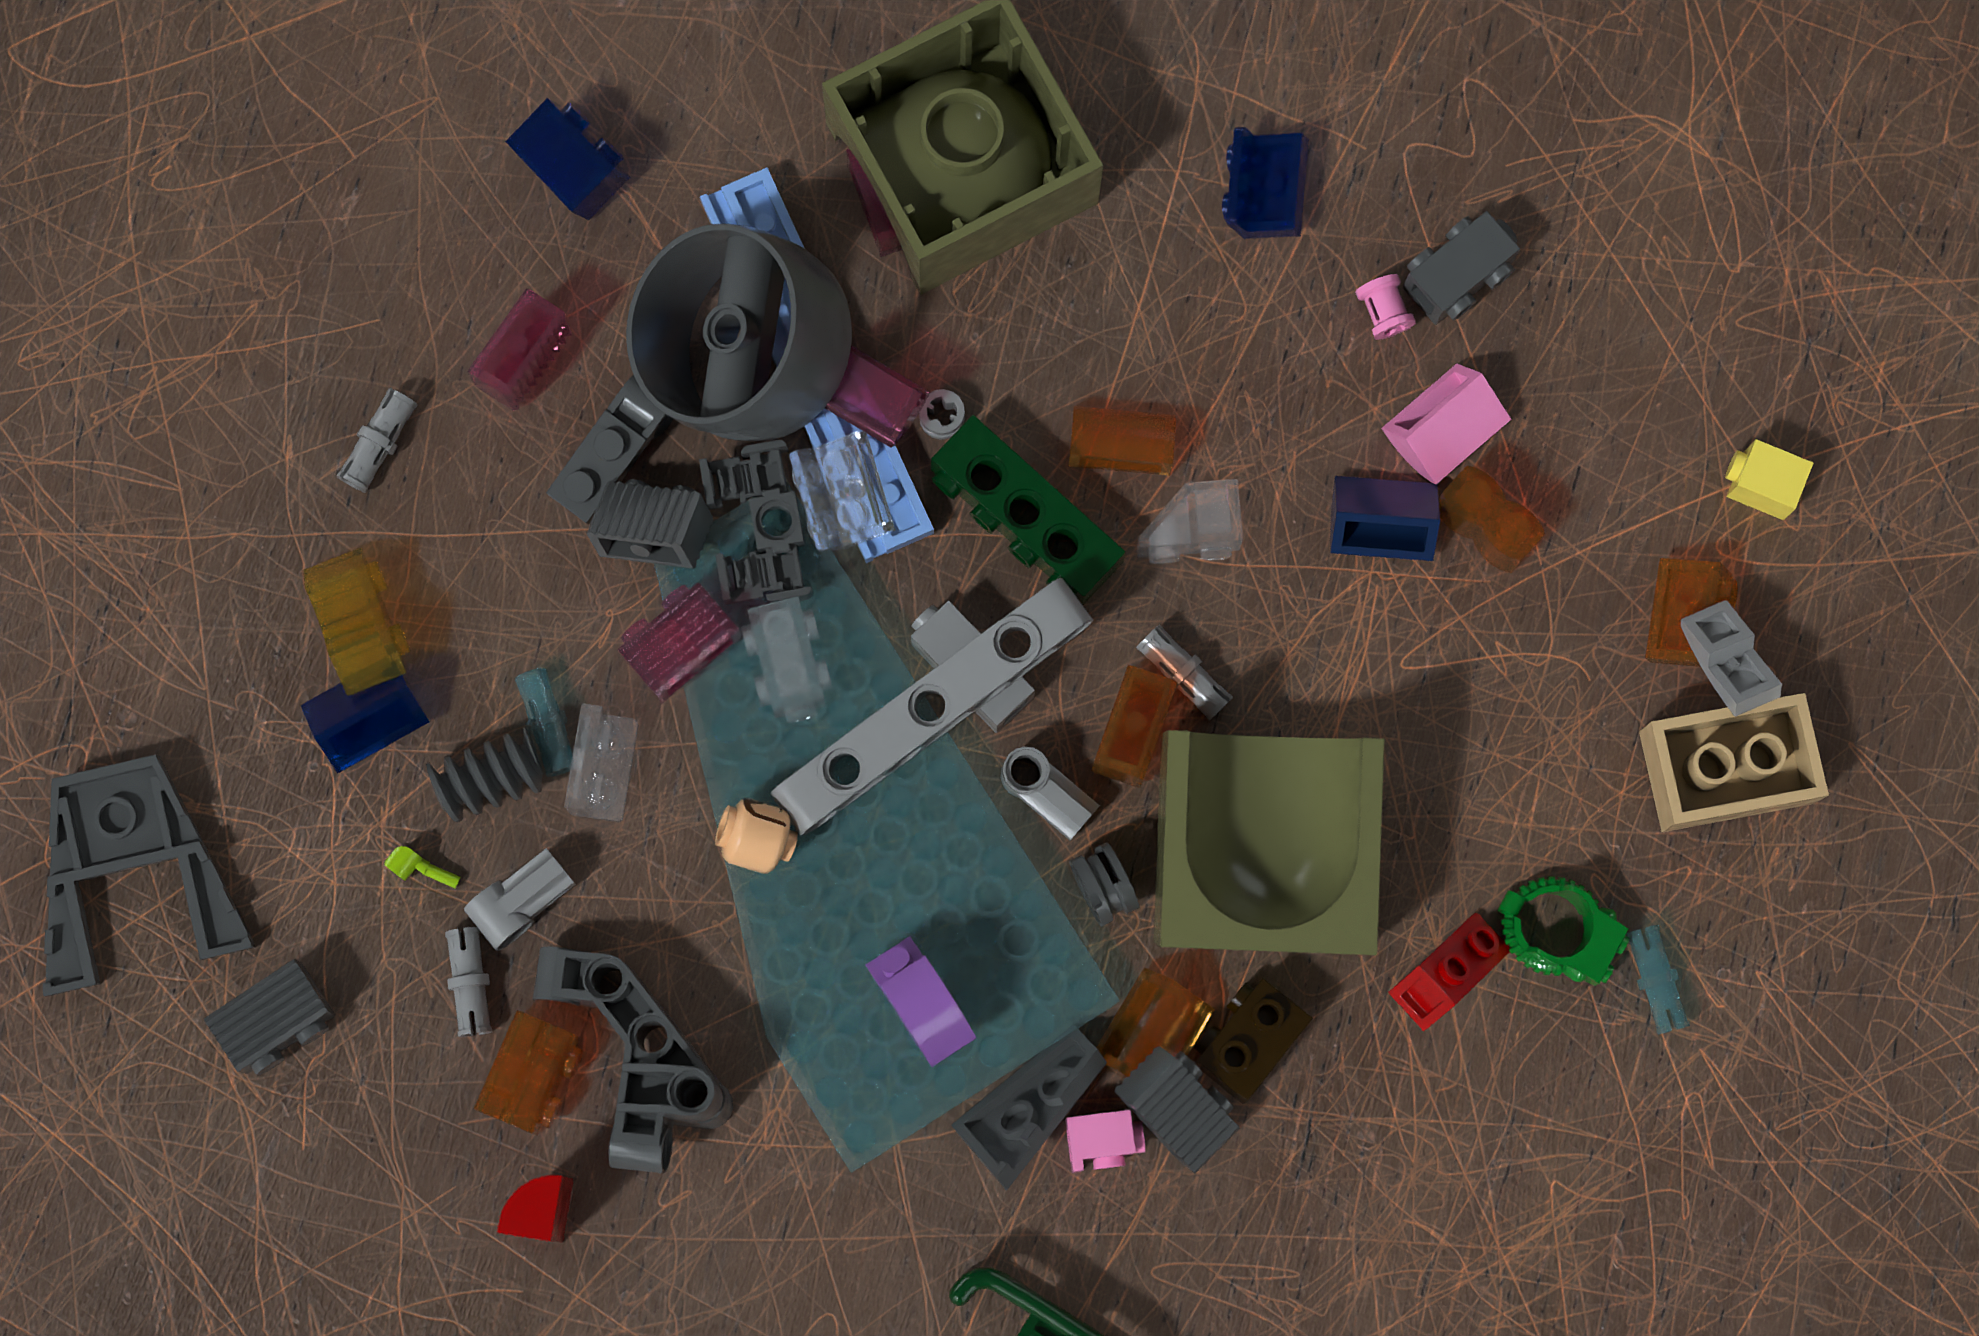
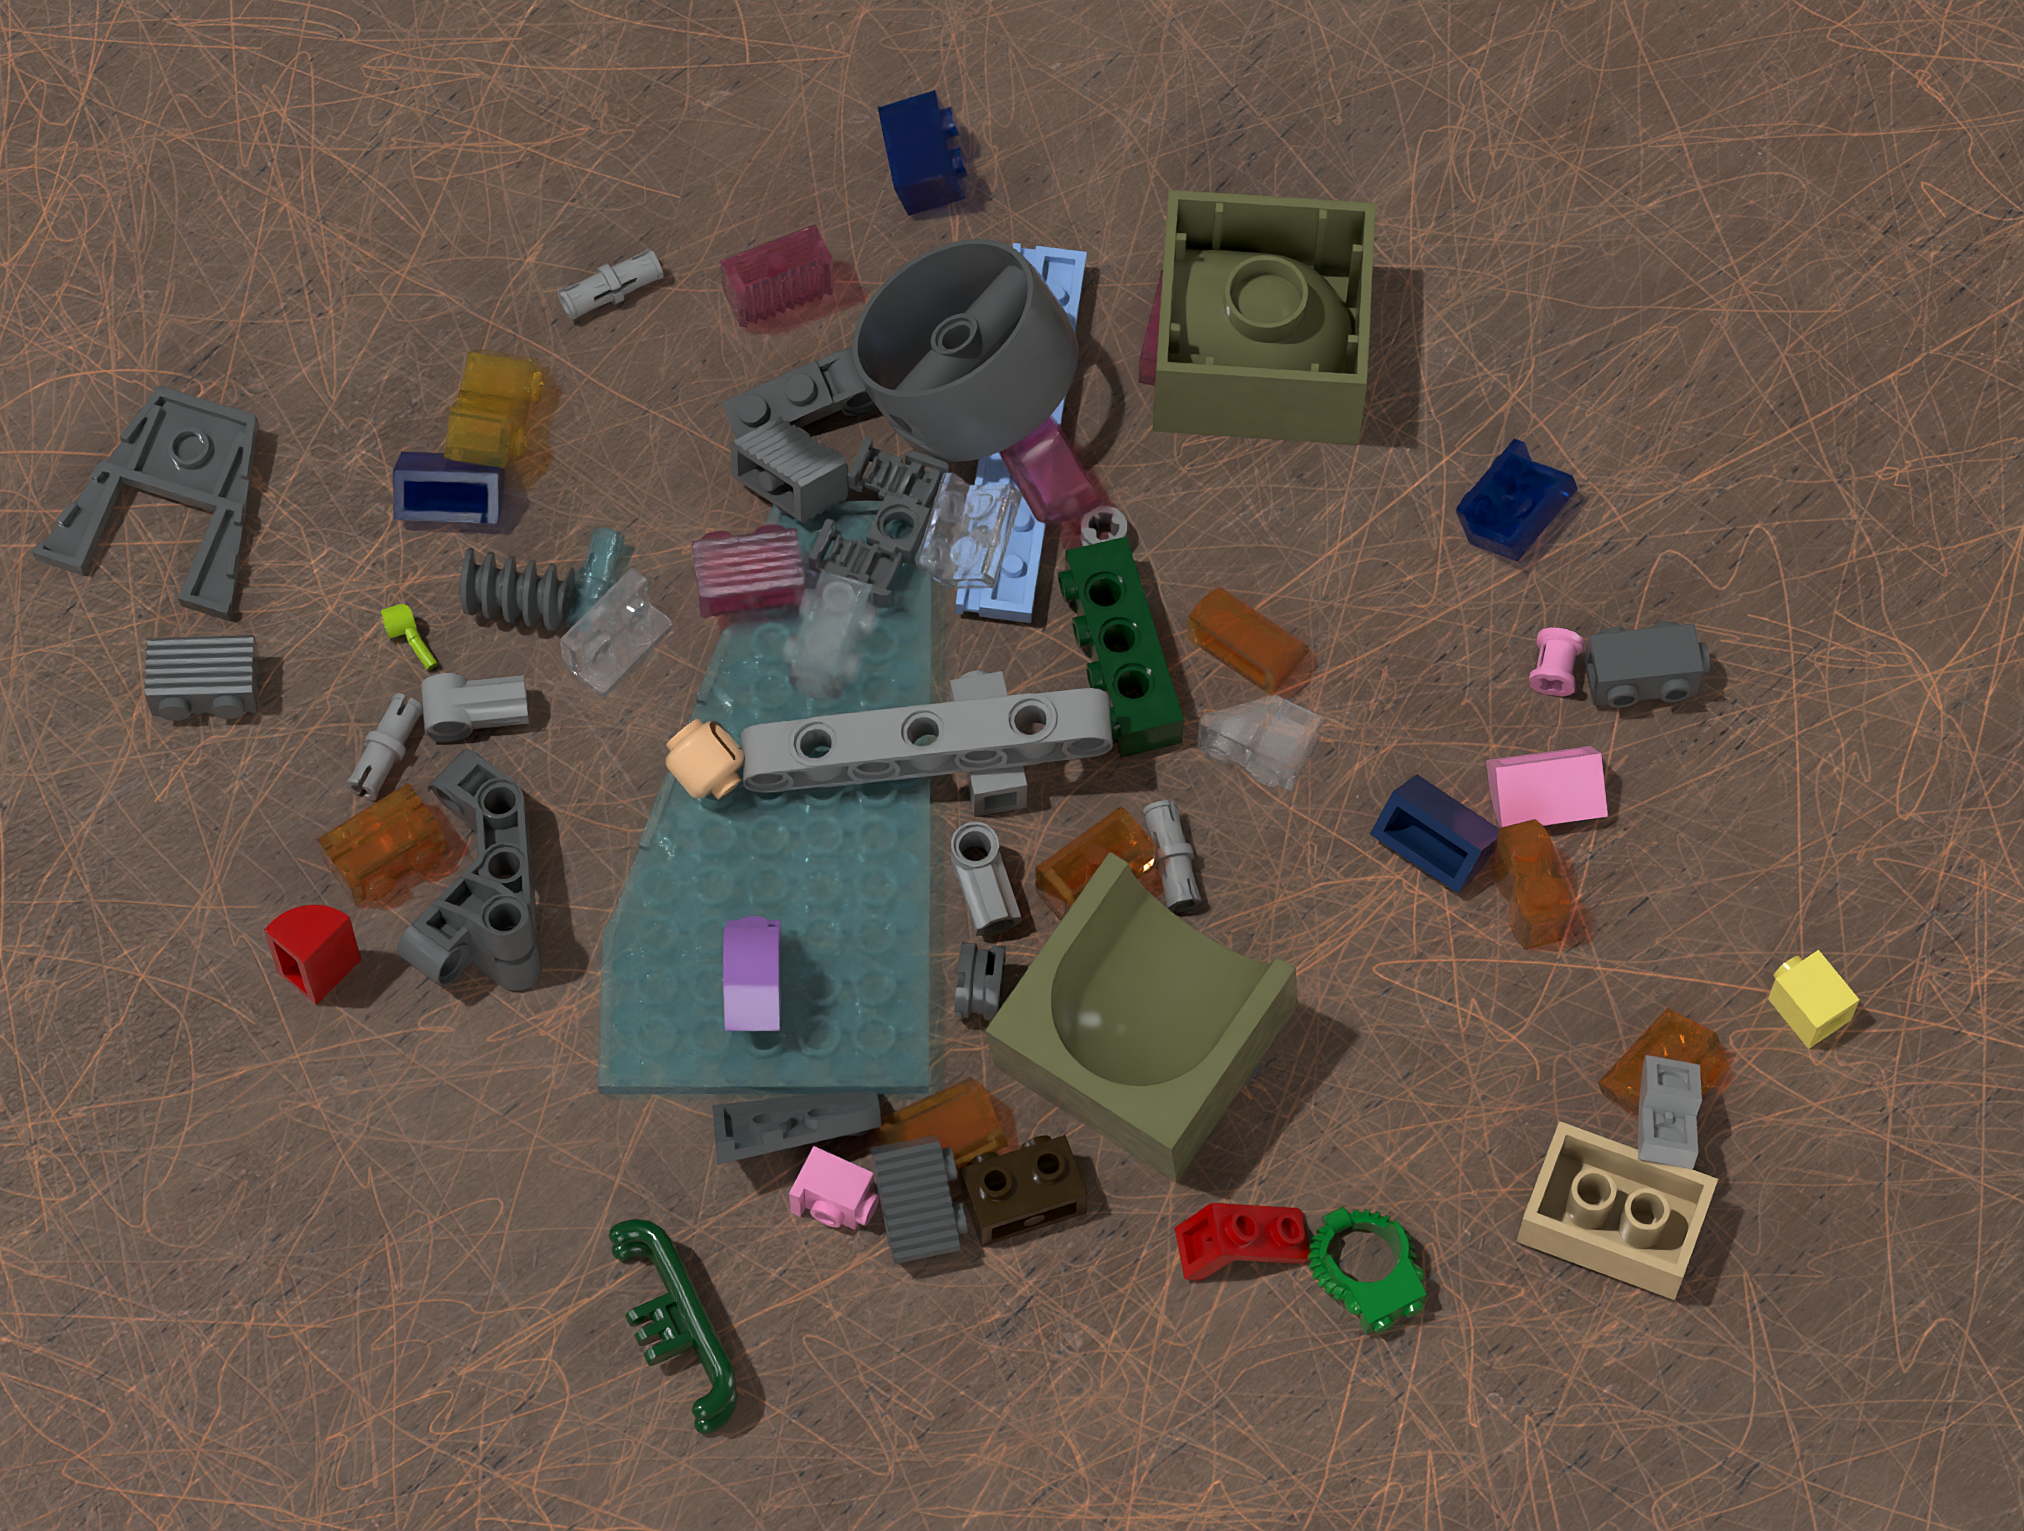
camera: 35 degrees right, 15 degrees down
(1658, 979) = (1428, 1361): clear light blue pin -> none

